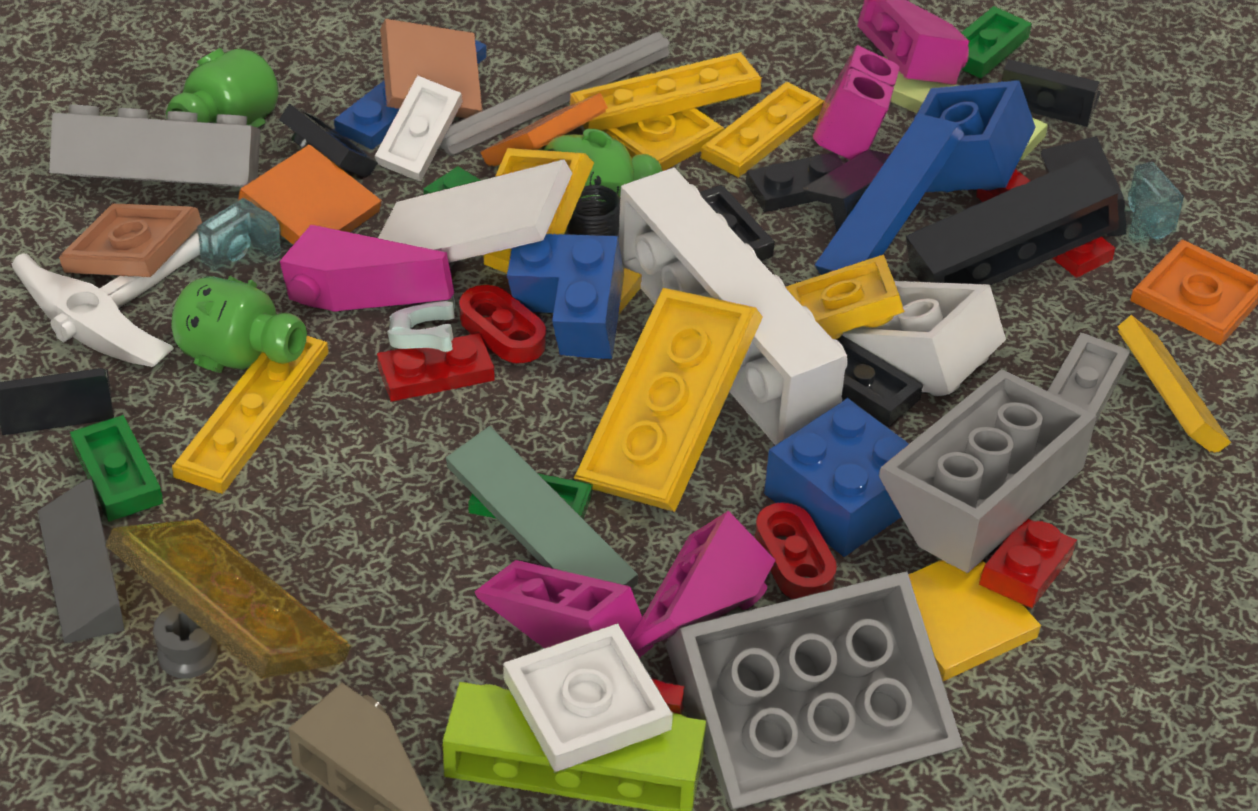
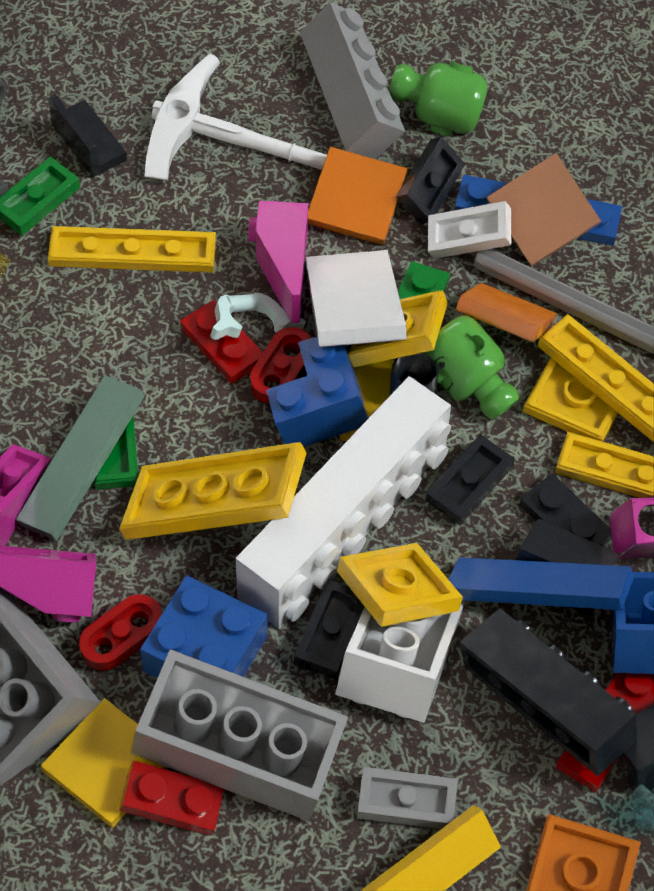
camera: 70 degrees right, 15 degrees up
(130, 240) = (257, 109): nougat tile -> none
(233, 324) = (190, 201): bright green piece -> none
(235, 231) = (293, 163): clear light blue bracket -> none

